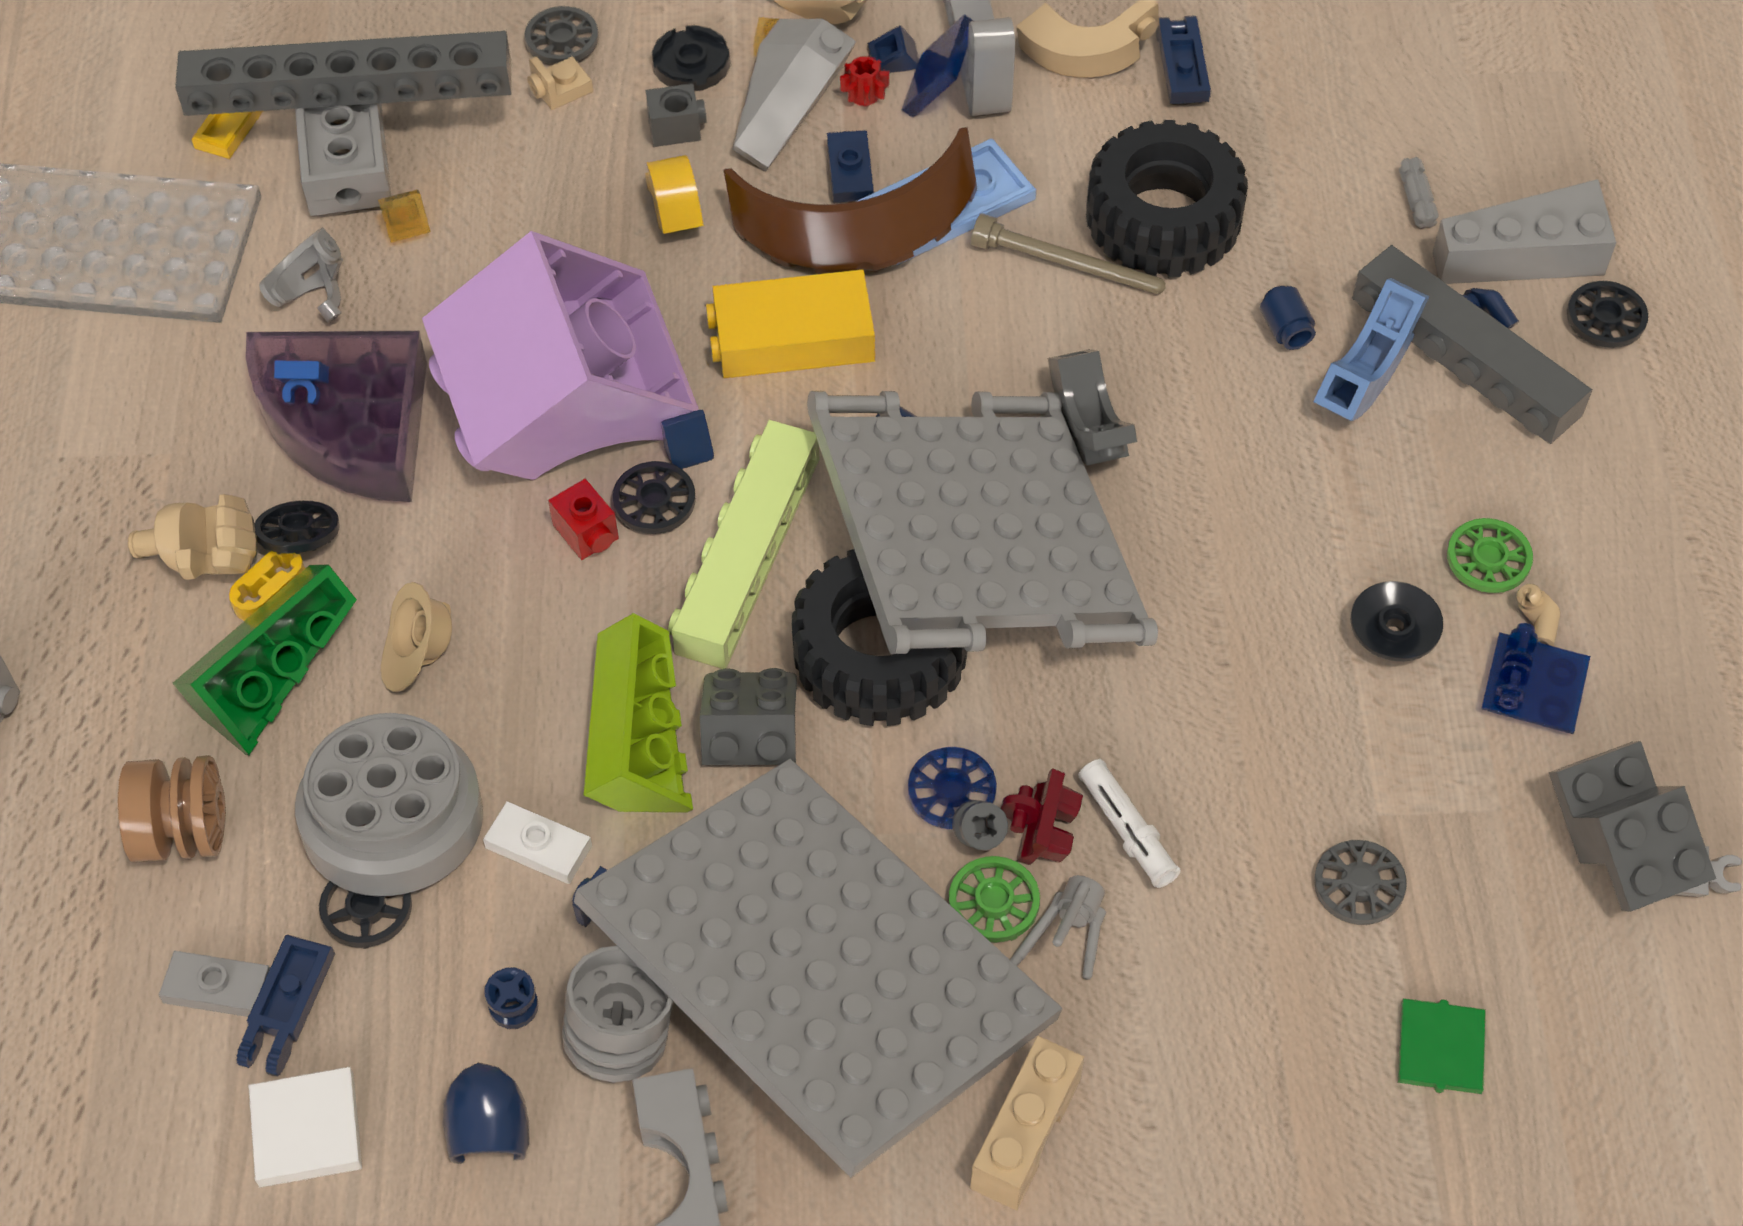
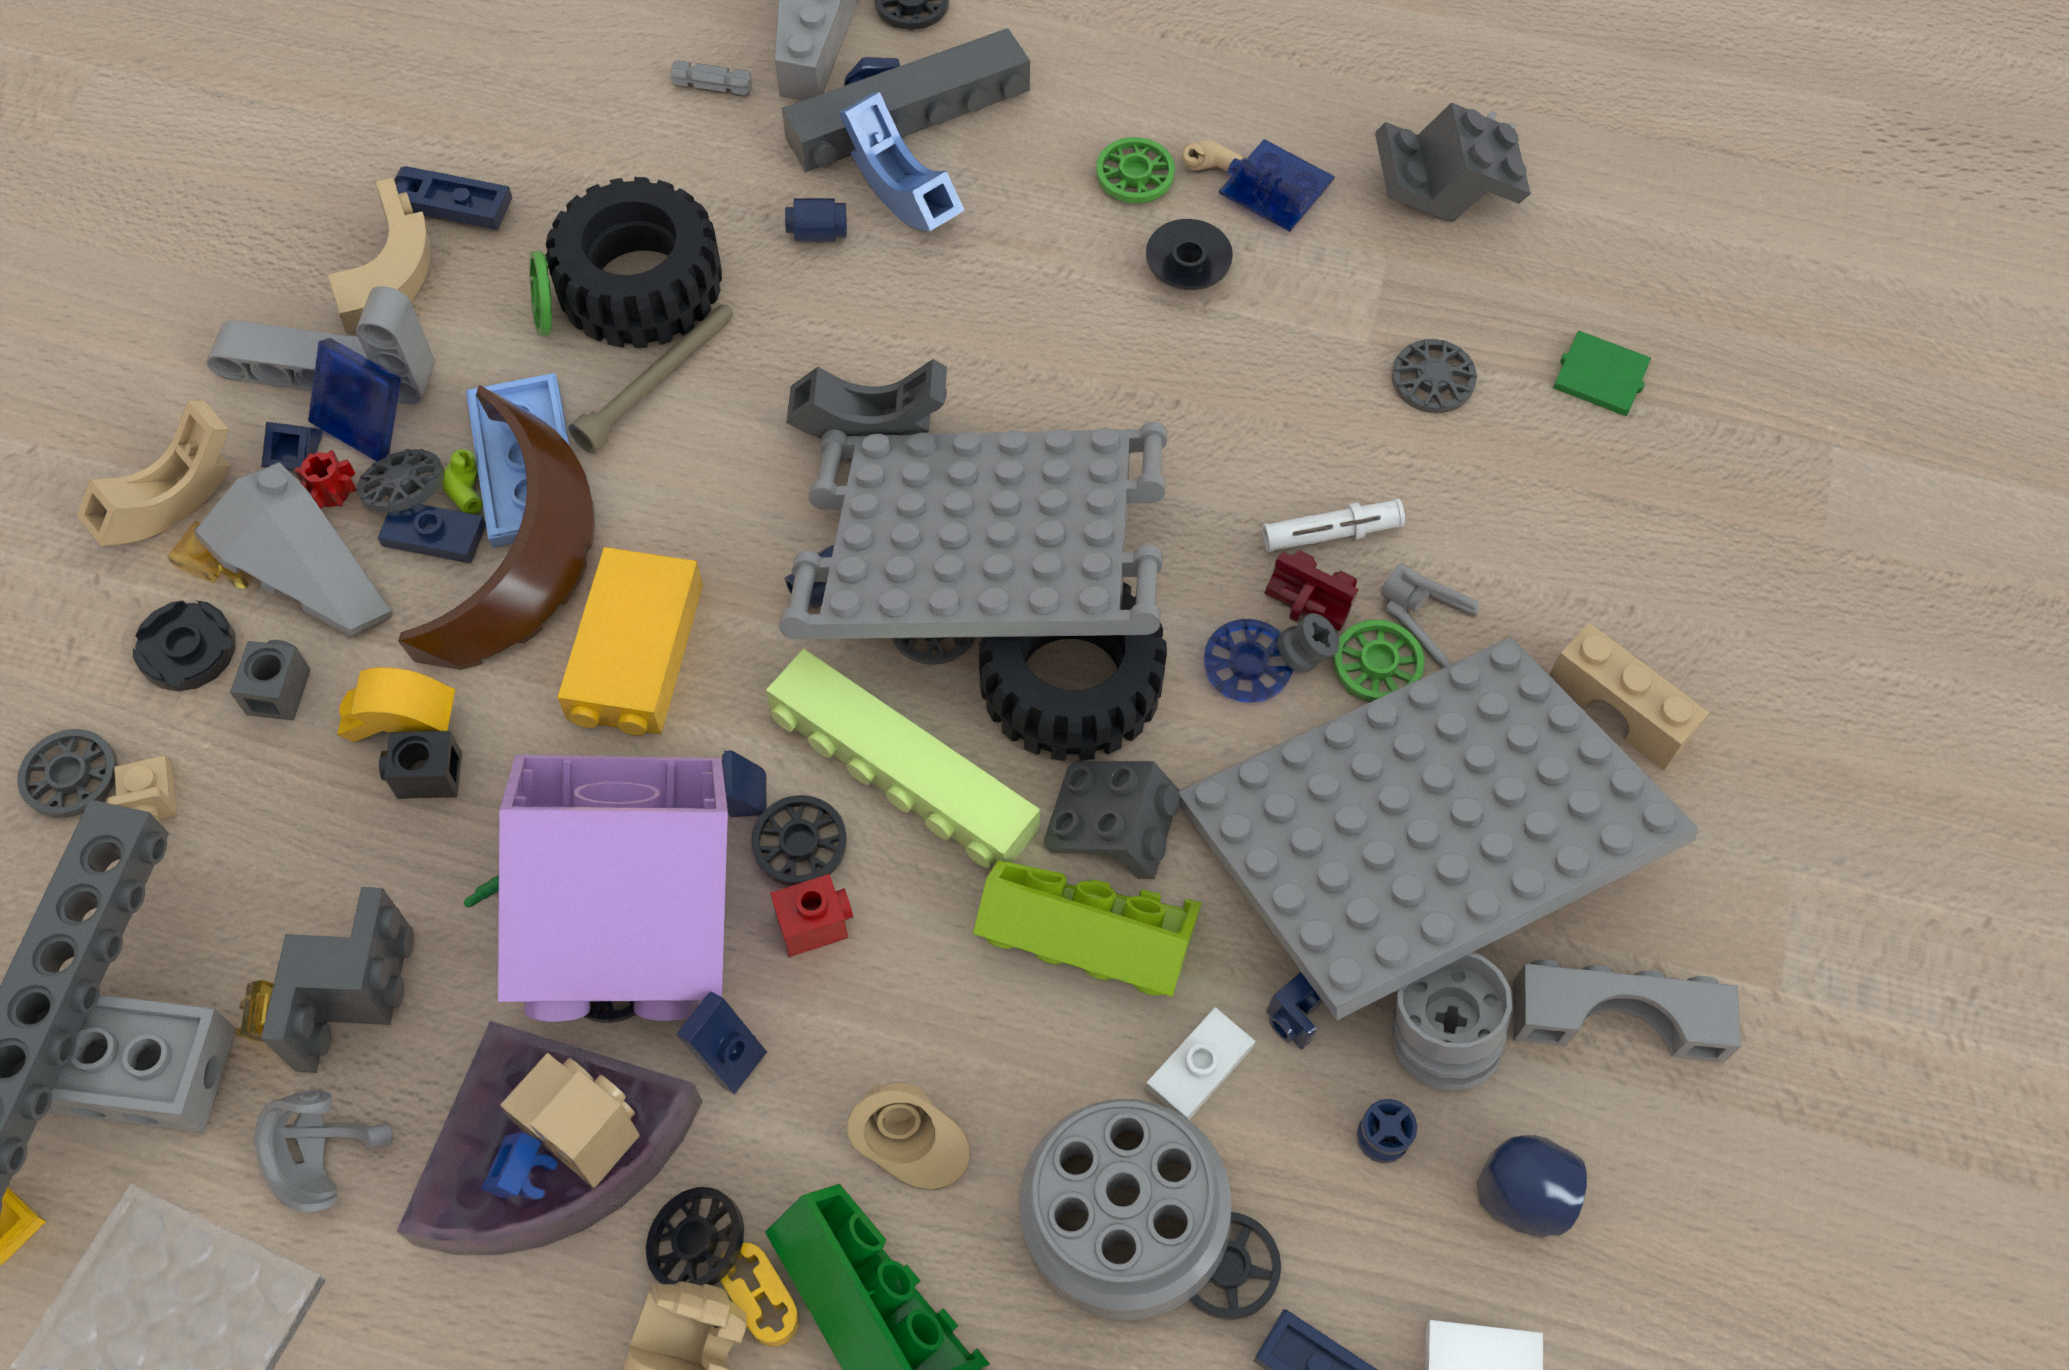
camera: 75 degrees left, 5 degrees up
(339, 393) = (573, 1116): none -> tan brick
(419, 225) = (337, 981): none -> dark grey bracket
(448, 486) = (721, 1042): none -> dark blue plate
(633, 230) = (436, 778): none -> black brick
(885, 128) = (400, 481): none -> dark grey wheel
(901, 166) = (459, 481): none -> lime arm
(1092, 143) = (540, 293): none -> bright green wheel

